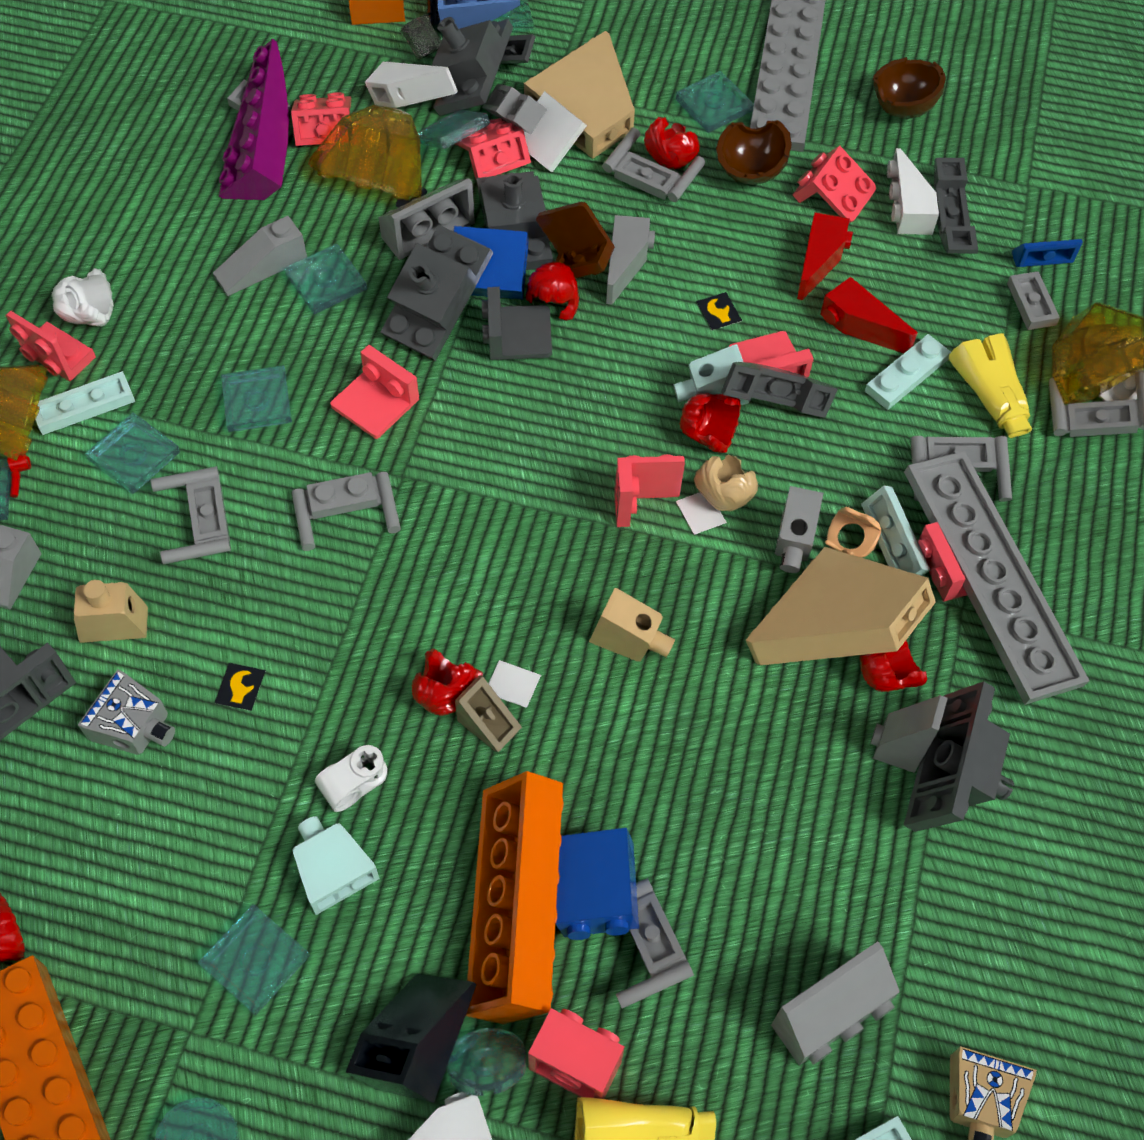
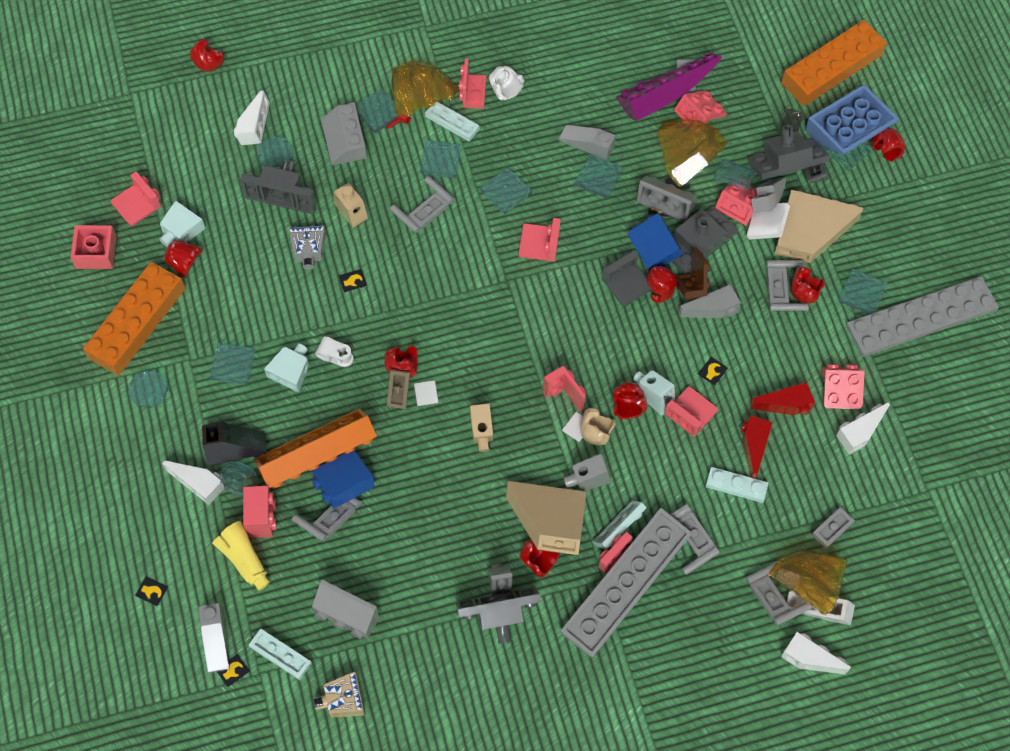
camera: 60 degrees right, 5 degrees up
(341, 497) = (476, 262): light grey plate -> none
(409, 84) = (747, 135): white slope -> none
(434, 290) = (617, 228): dark grey brick -> none
(754, 154) = (828, 329): reddish brown cylinder -> none
(780, 387) = (669, 419): dark grey slope -> none
(850, 516) = (617, 504): light nougat piece -> none
(909, 87) = (944, 387): reddish brown cylinder -> none
(953, 217) = (872, 456): dark grey slope -> none
(992, 376) = (757, 531): light yellow piece -> none
(1046, 253) = (876, 520): blue slope -> none

